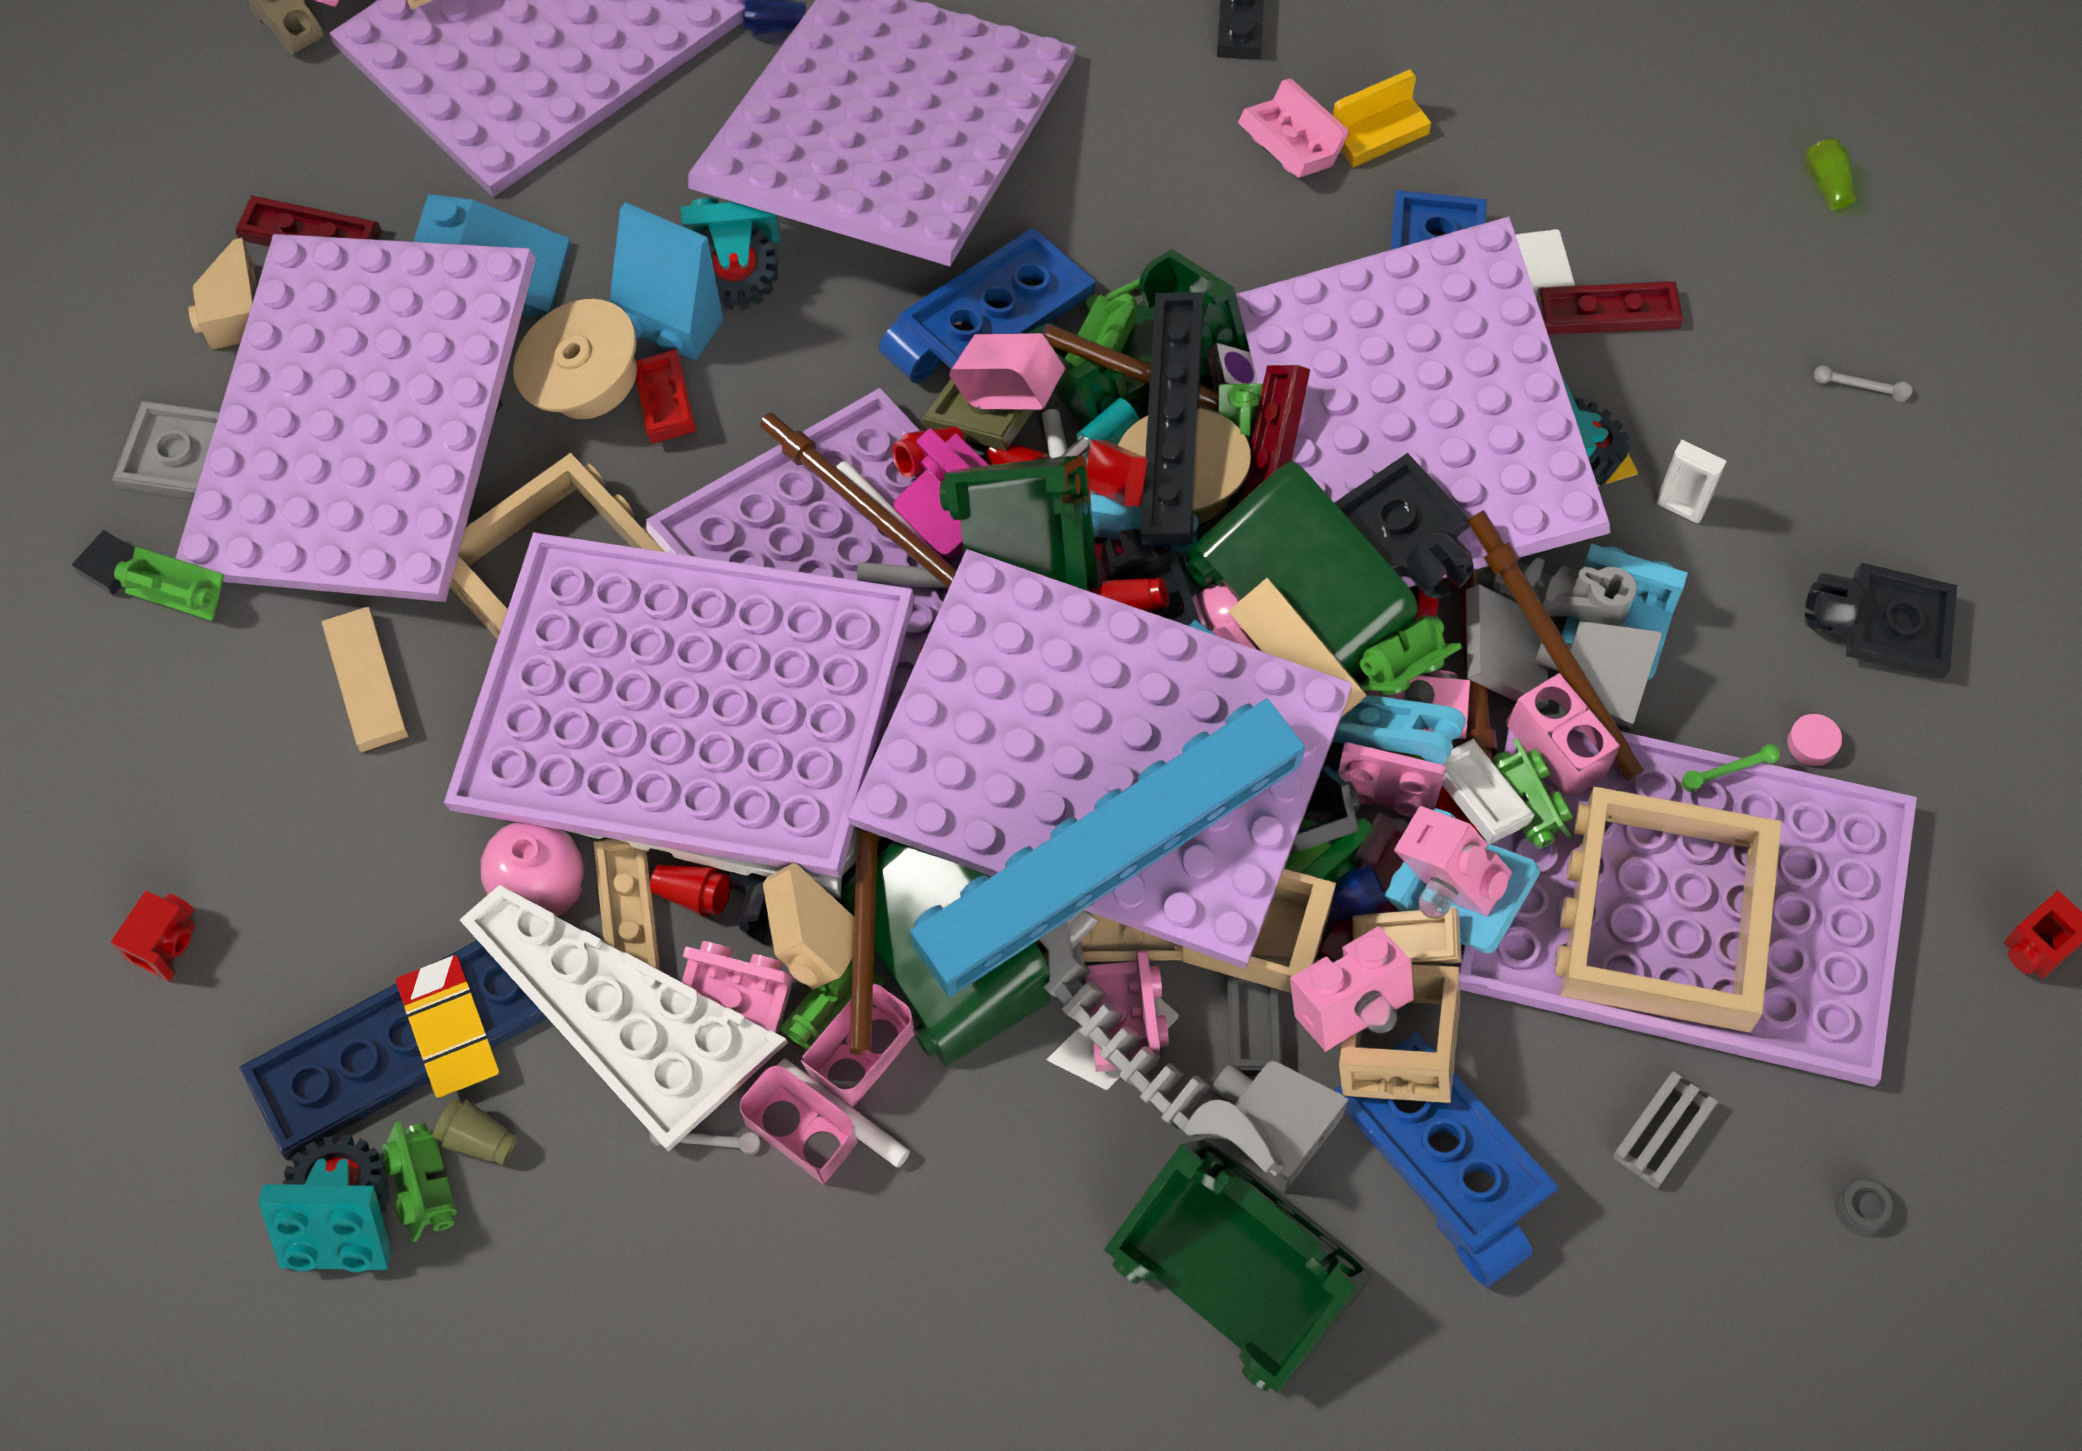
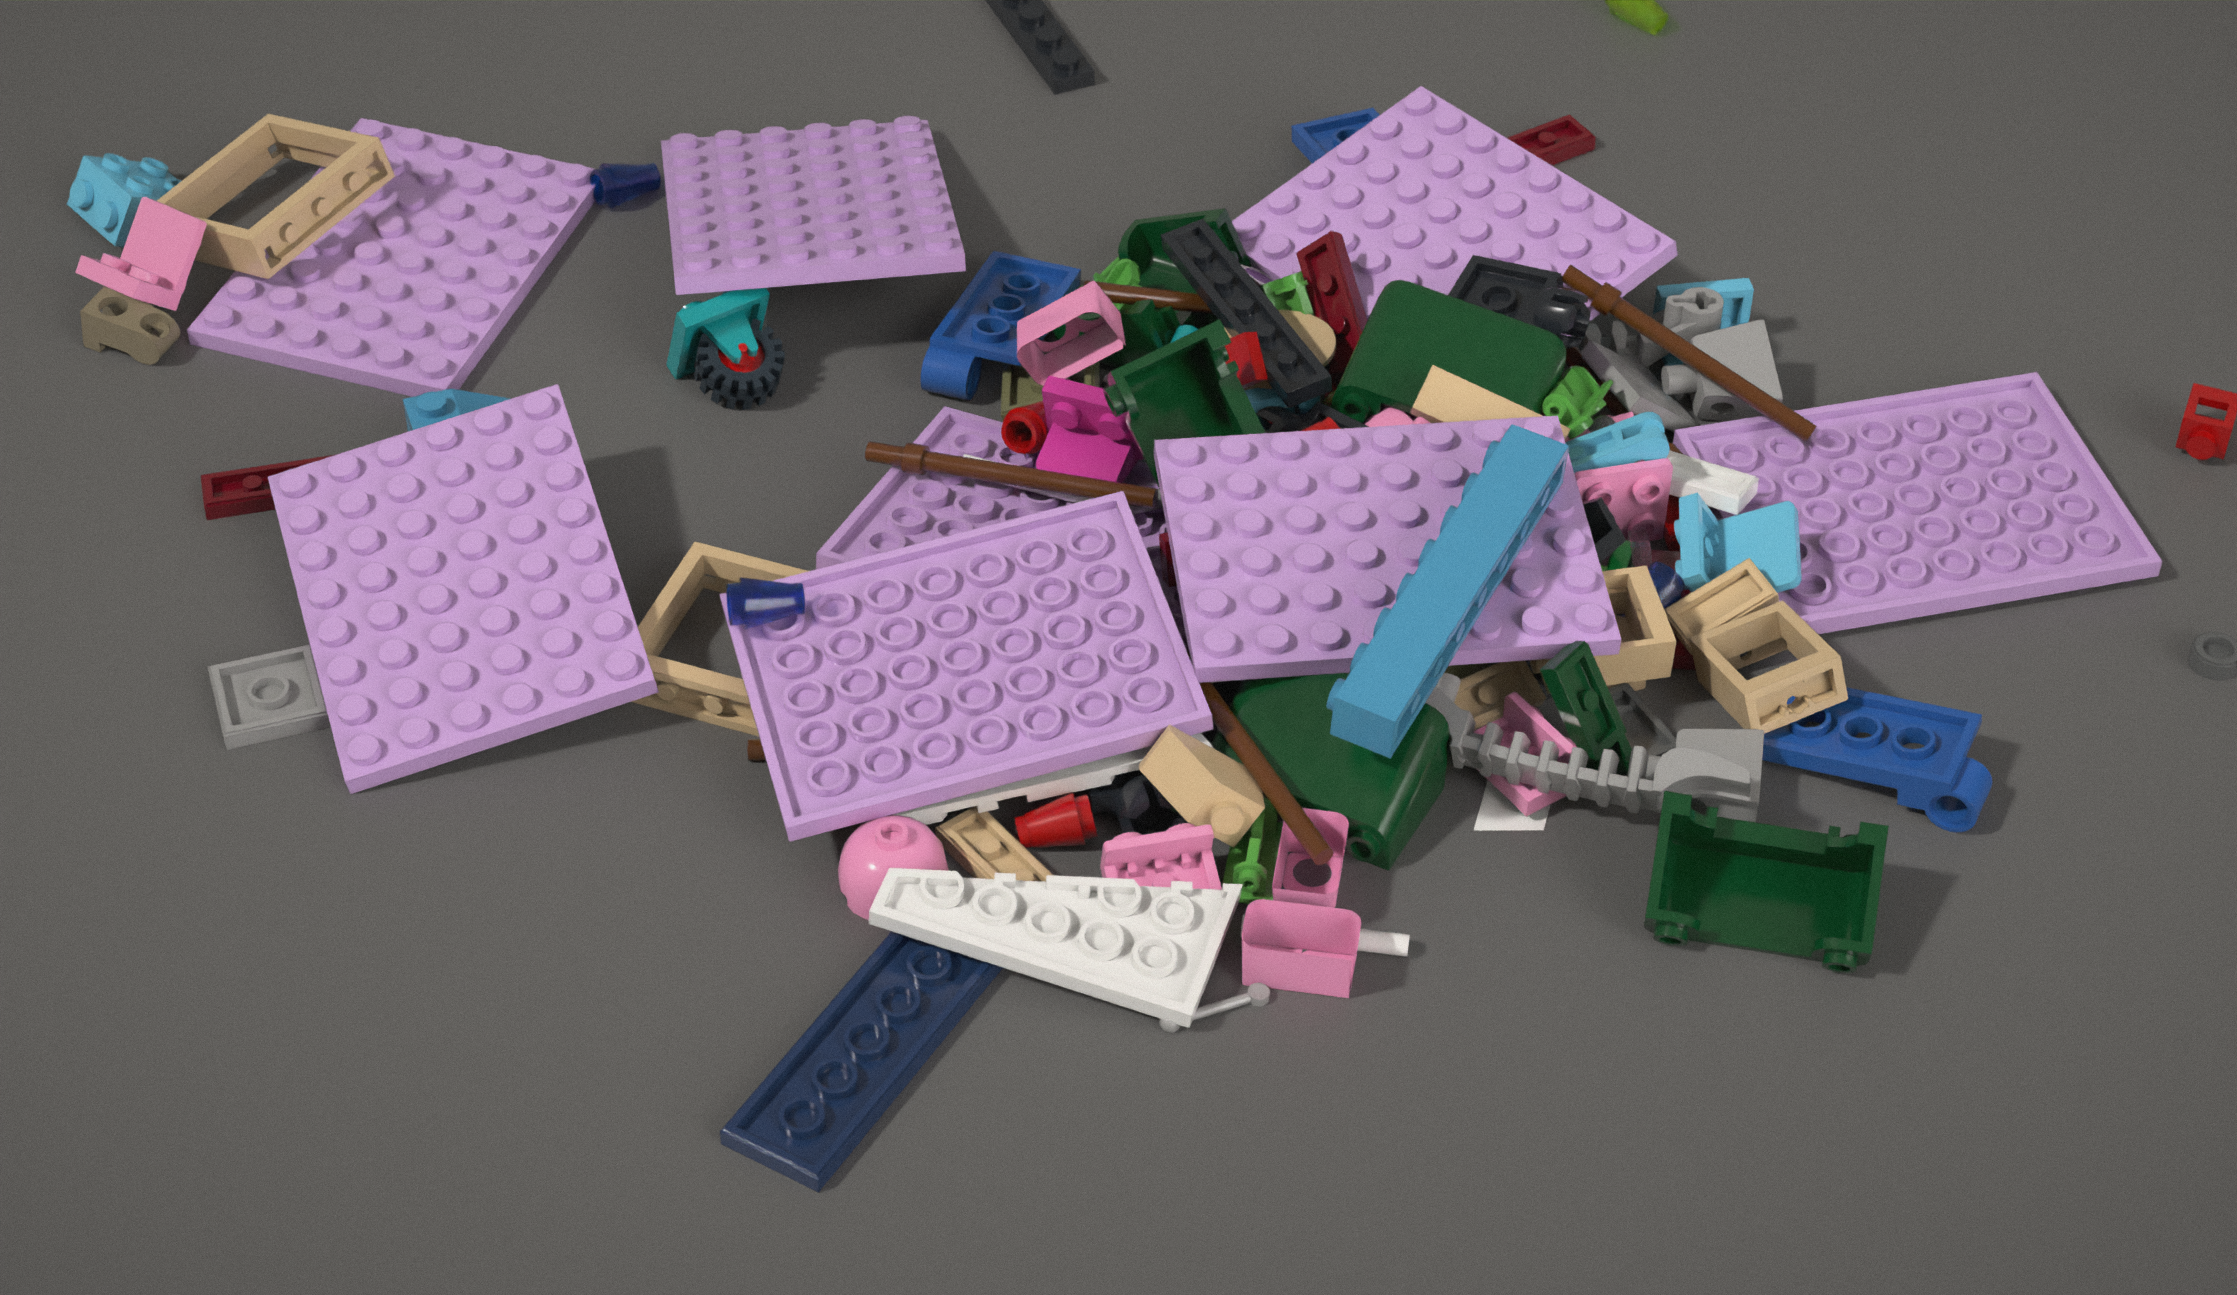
camera: 30 degrees left, 20 degrees down
(100, 560) = (267, 804): black tile -> none
(155, 933) = (555, 1062): red brick -> none
(171, 582) = (354, 791): bright green hinge -> none
(224, 297) = (246, 558): tan slope -> none
(329, 1209) = (915, 1190): teal plate -> none
(364, 679) = (609, 795): tan tile -> none
(418, 1200) = (965, 1146): bright green hinge -> none
(446, 1026) = (906, 1015): yellow sticker -> none
(473, 1133) = (996, 1083): olive cone -> none
(547, 565) = (763, 601): none -> clear blue cone
(578, 359) = (650, 472): tan piece -> none
(664, 396) = (742, 483): red plate -> none
(665, 282) = (692, 381): dark azure slope -> none
(1192, 1006) = (1586, 705): none -> dark green hinge
(1296, 130) = (1172, 110): bright pink bracket -> none
(1354, 991) = (1718, 634): bright pink piece -> none
(1381, 118) = (1235, 87): yellow panel -> none
(1452, 864) = (1728, 518): bright pink piece -> none
(1526, 775) = (1732, 453): bright green hinge -> none
(1533, 727) = (1736, 422): bright pink piece -> none
(1656, 996) = (2009, 549): tan window -> none
(1688, 1095) = (2023, 641): light grey tile -> none
(1690, 481) = (1698, 226): white tile -> none
(1693, 780) = (1859, 422): bright green hinge -> none
(1814, 740) = (1924, 370): bright pink tile -> none
(1887, 617) = (1915, 270): black plate -> none
(1900, 391) = (1802, 130): light grey hinge -> none

